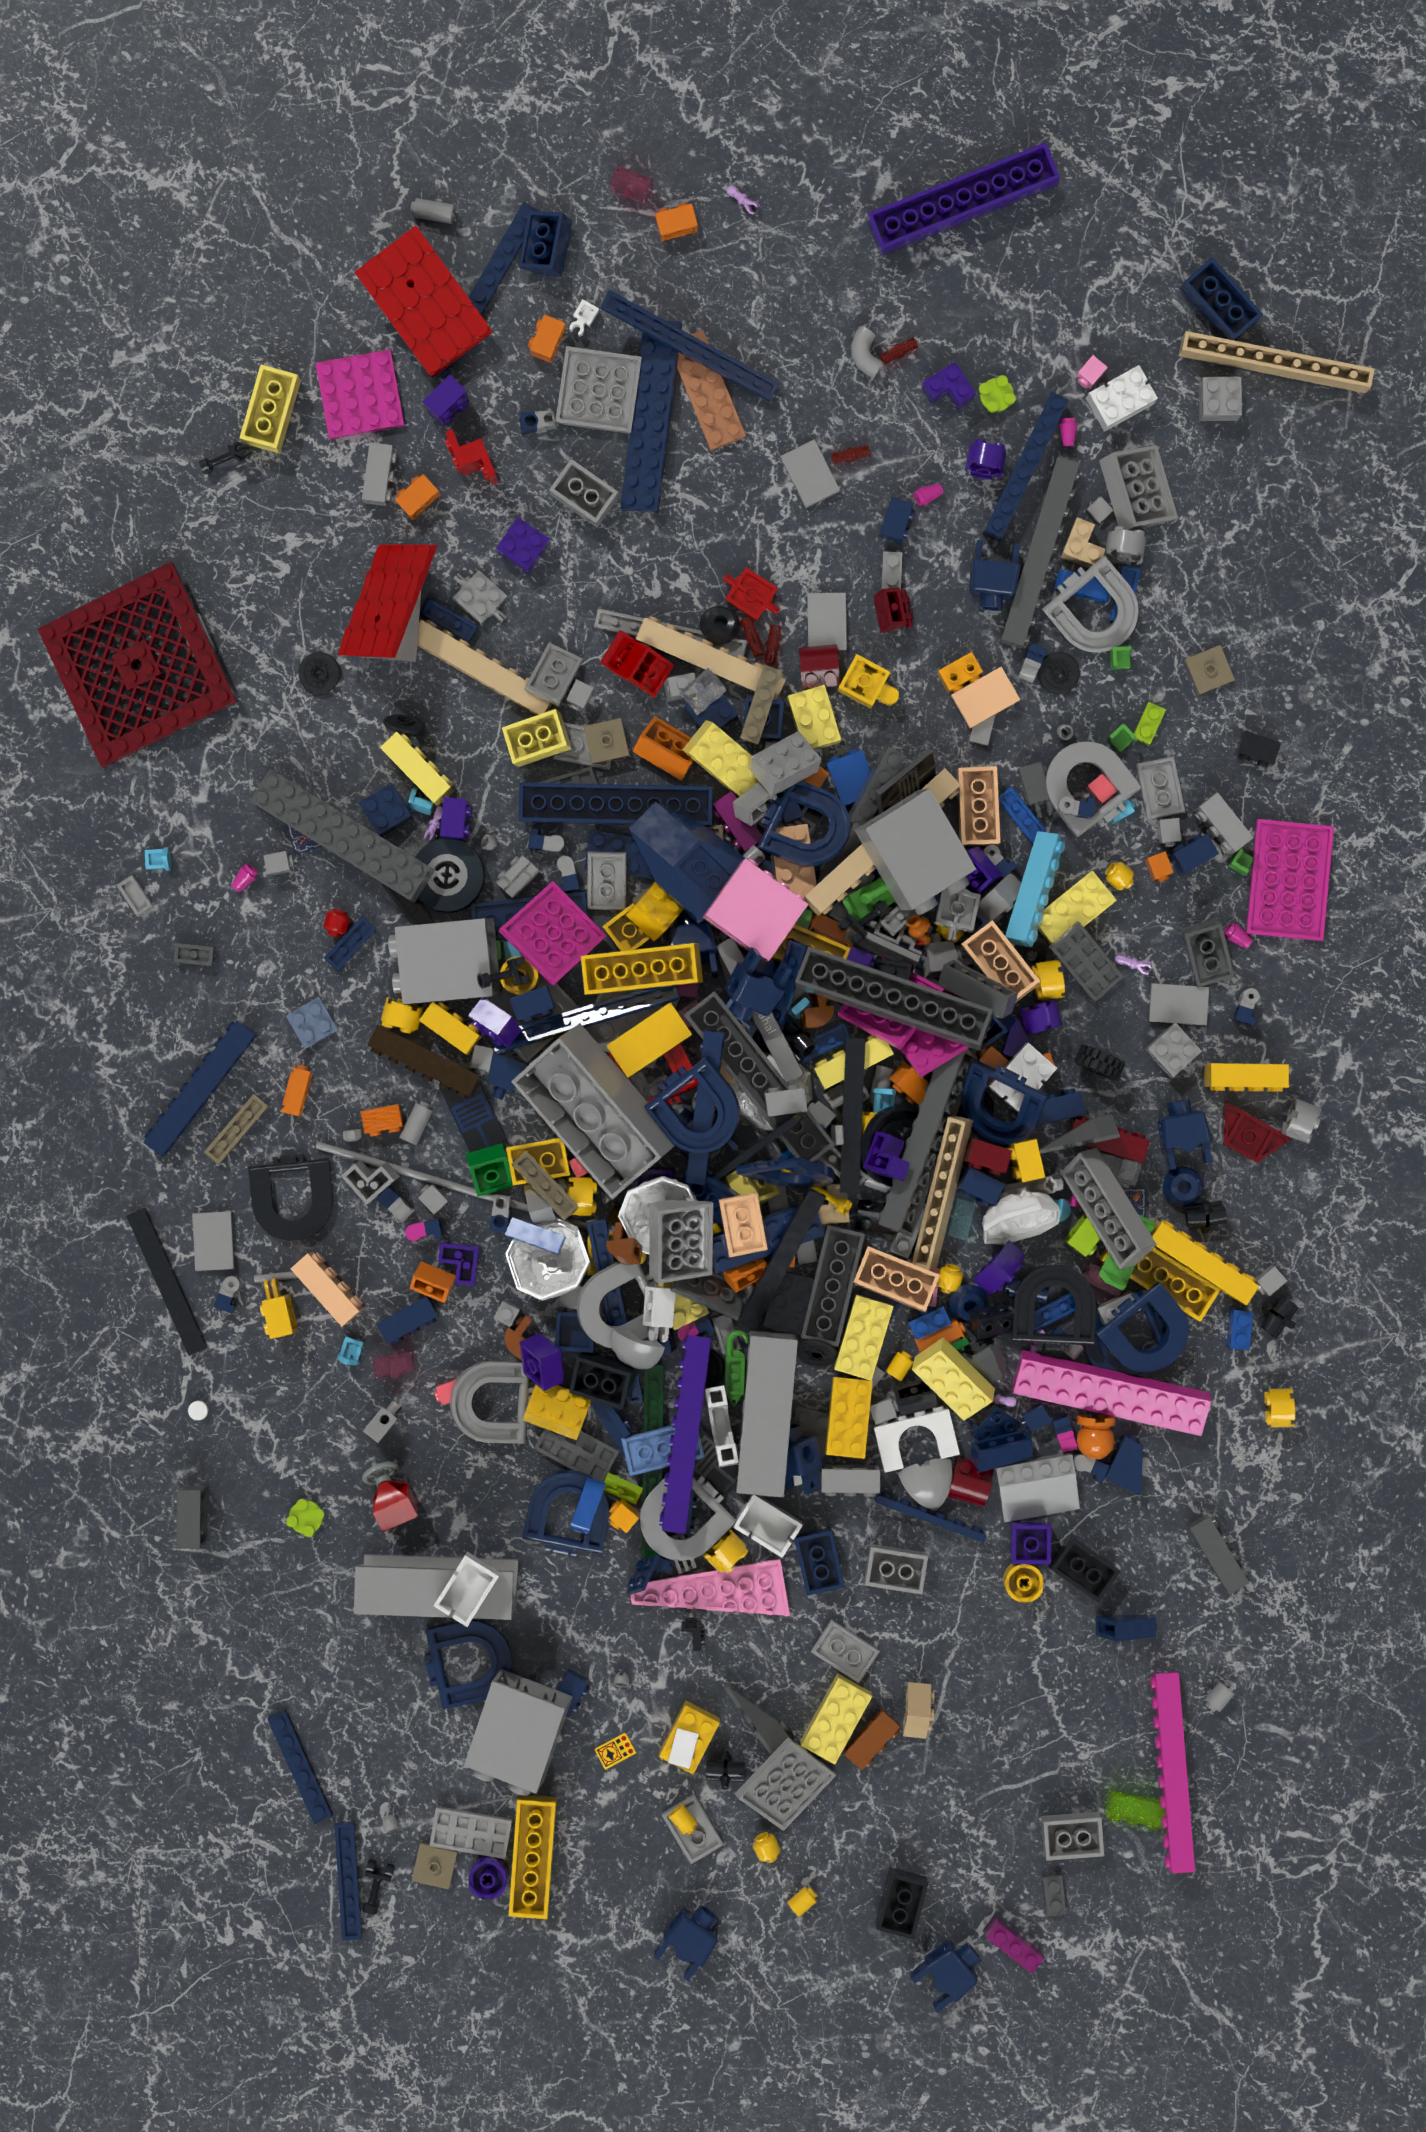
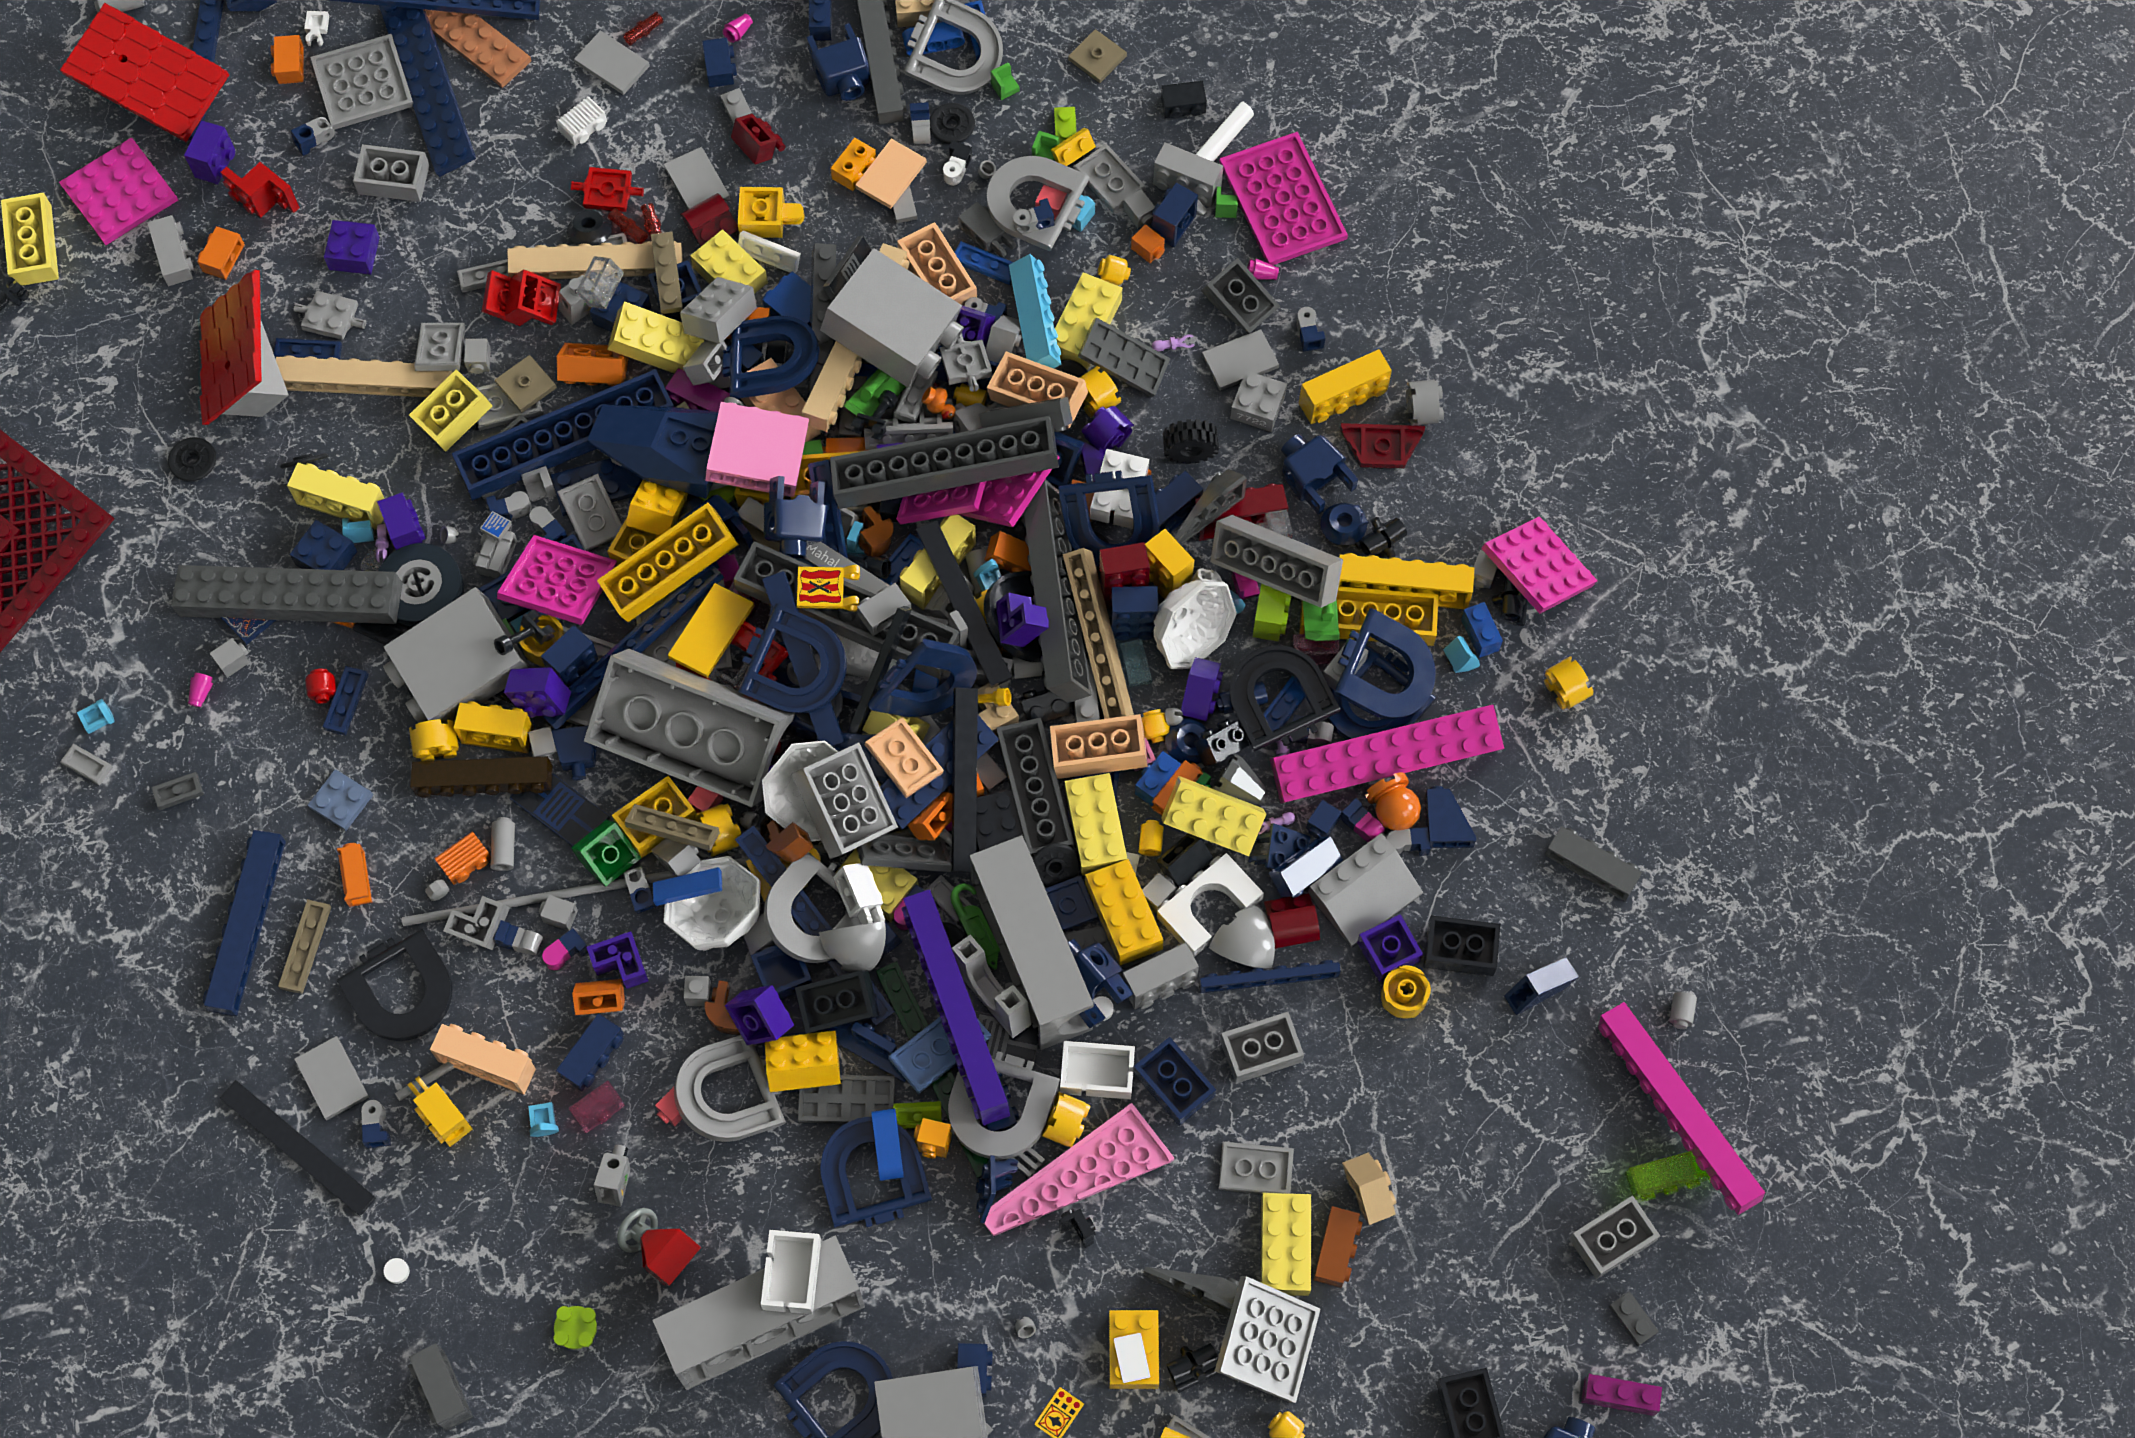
camera: 30 degrees left, 20 degrees down
(526, 859) = (495, 526): none -> tile
(577, 834) = (538, 484): none -> light grey panel
(747, 1058) = (824, 587): none -> yellow flag
(759, 521) = (582, 121): none -> white brick
(812, 1385) = (1071, 903): none -> dark blue plate
(852, 719) = (769, 252): none -> white tile
(965, 1280) = (1173, 716): none -> light grey hinge
(1040, 718) = (959, 161): none -> leg
(1144, 748) = (1073, 147): none -> yellow plate
(1211, 1340) = (1461, 655): none -> medium azure tile
(1270, 799) = (1226, 132): none -> white brick
(1312, 1303) = (1539, 564): none -> dark pink plate

